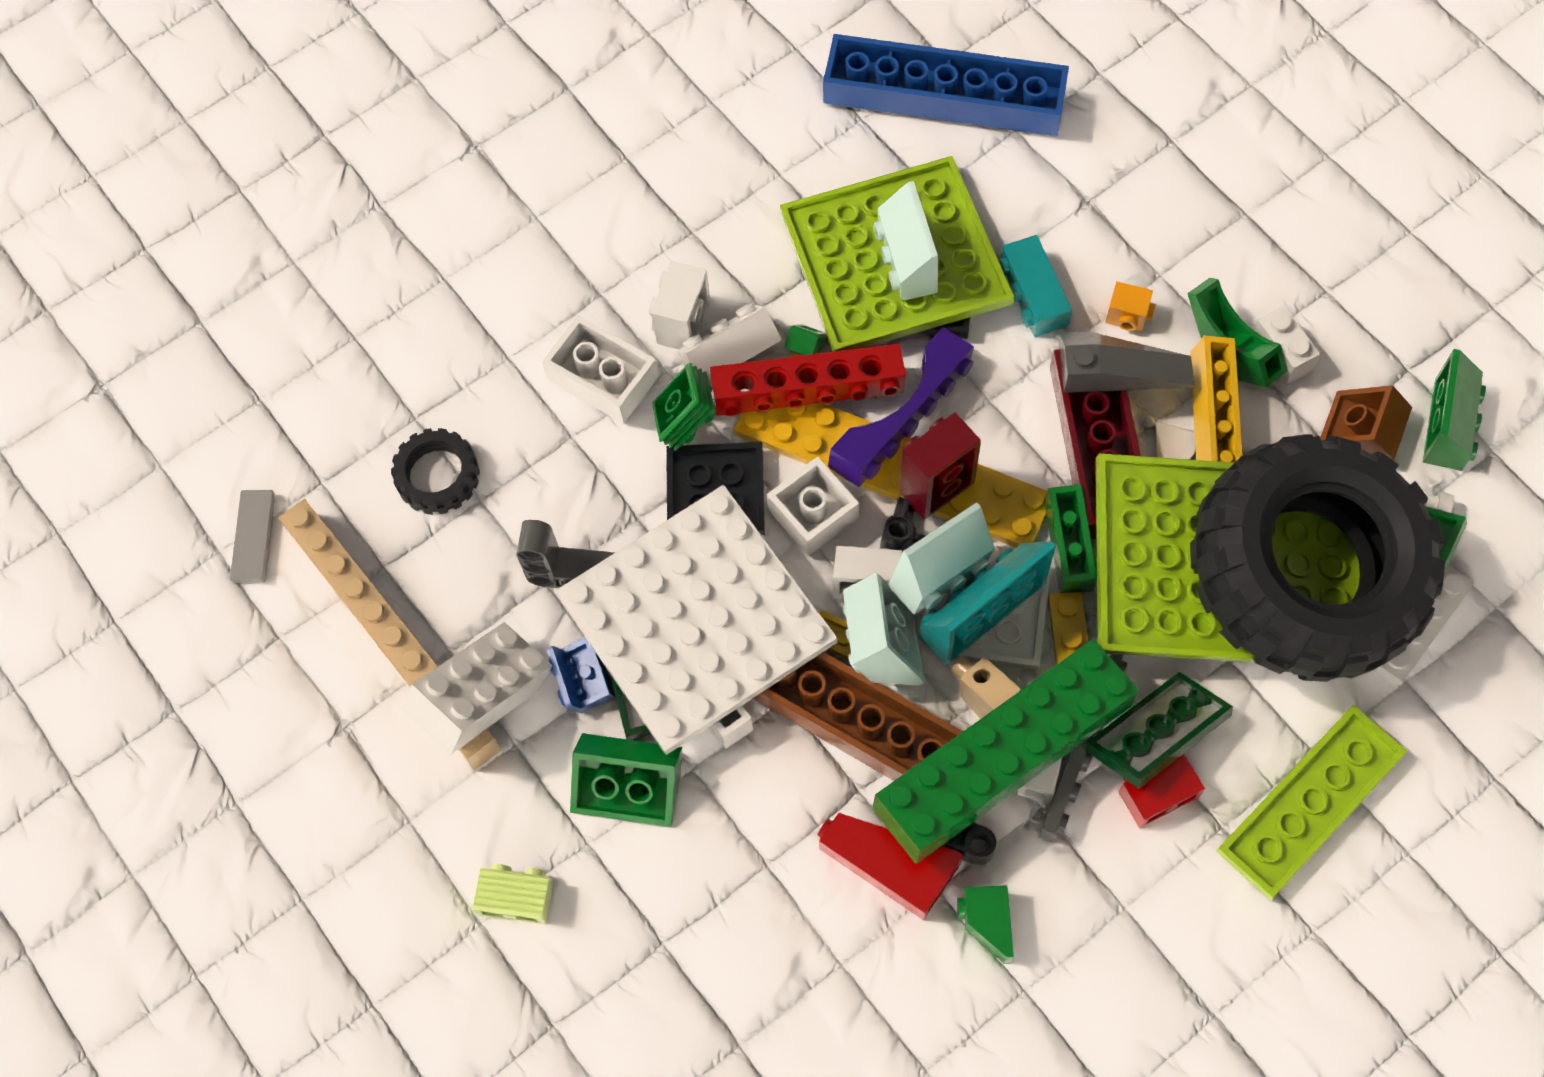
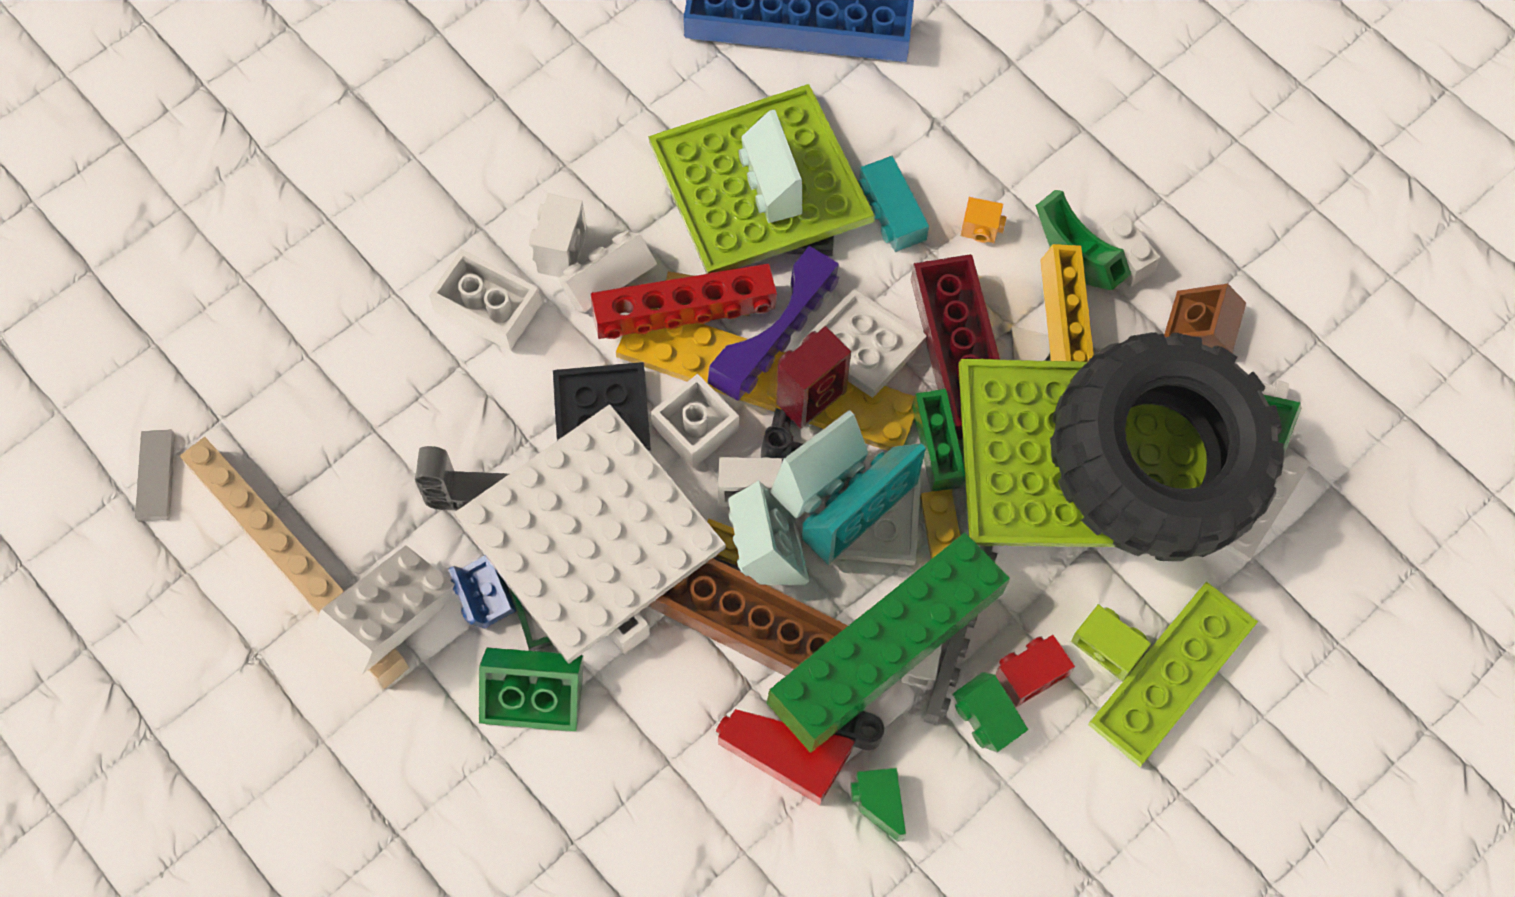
camera: 10 degrees left, 0 degrees up
(423, 444) = (319, 378): black tyre -> none
(513, 894) = (428, 804): yellowish green brick -> none
(683, 407) = (567, 332): green brick -> none
(805, 339) = (679, 263): green slope -> none
(983, 685) = (864, 581): tan torso -> none
(1009, 430) = (877, 340): none -> white plate
(1110, 832) = (989, 712): none -> green brick
(1113, 364) = (969, 274): dark grey wedge -> none
(1159, 729) = (1029, 614): dark green piece -> none
(1245, 763) = (1110, 641): none -> lime brick
(1454, 413) = (1285, 307): green slope -> none

